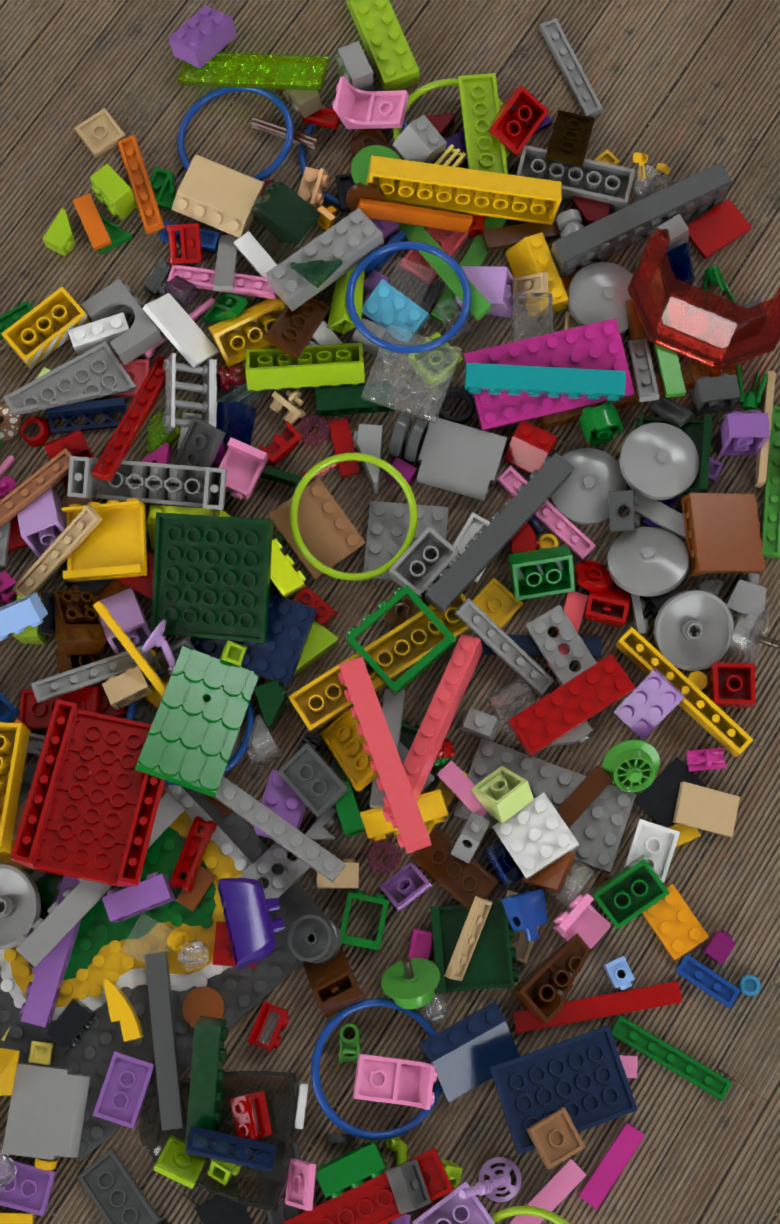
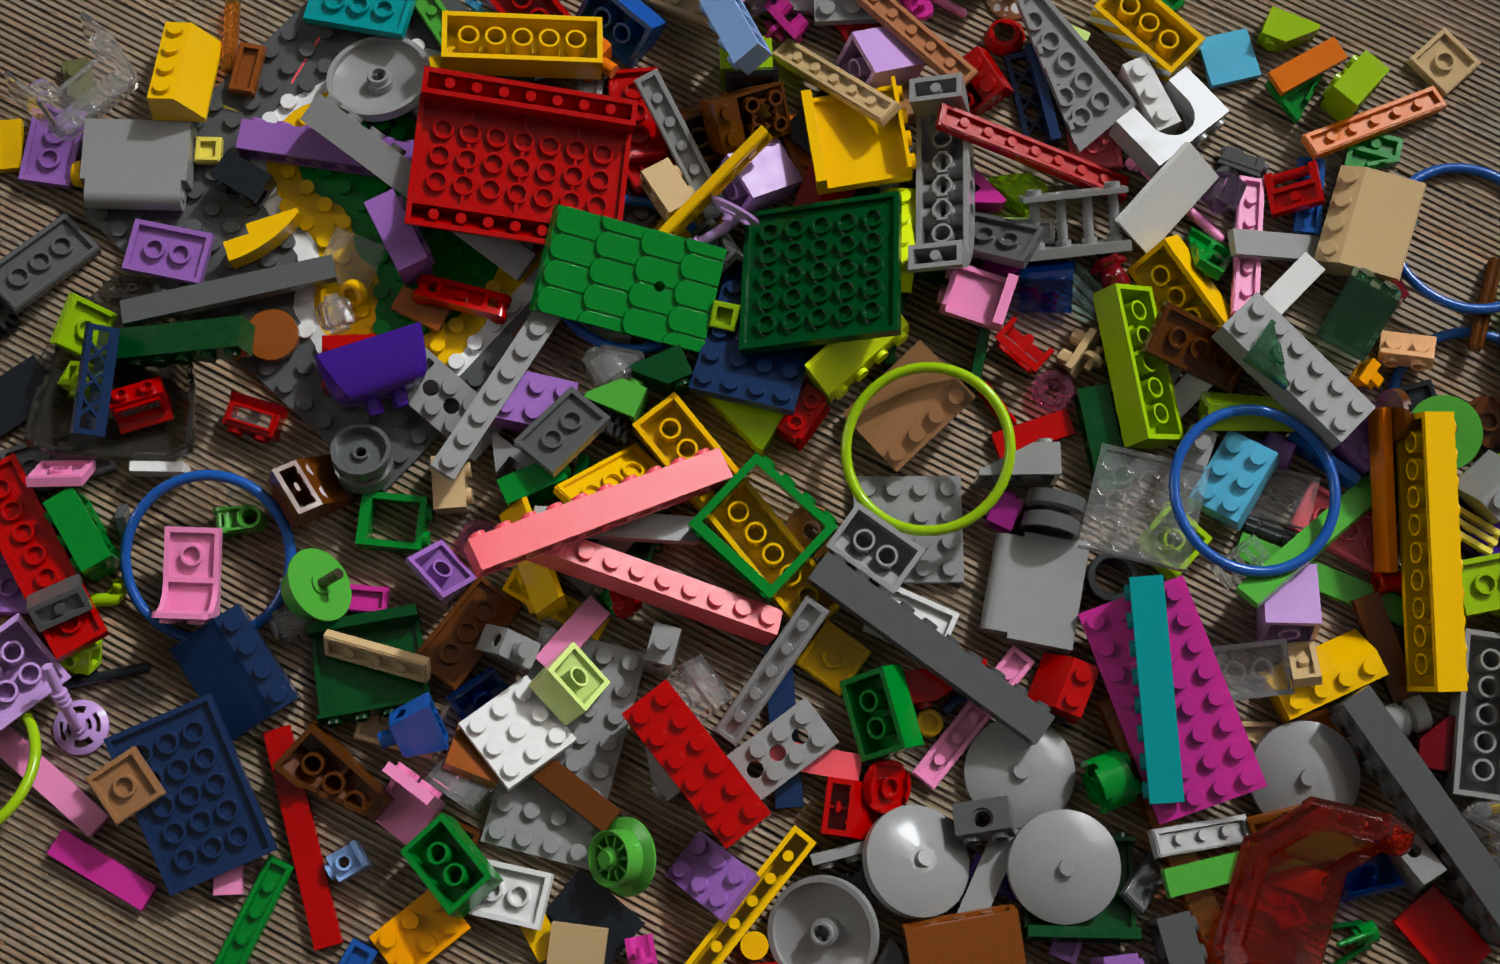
camera: 80 degrees right, 0 degrees up
(76, 275) = (1229, 59): none -> medium azure tile
(289, 735) = (622, 397): none -> bright green slope
(461, 1155) = (107, 675): none -> black bar

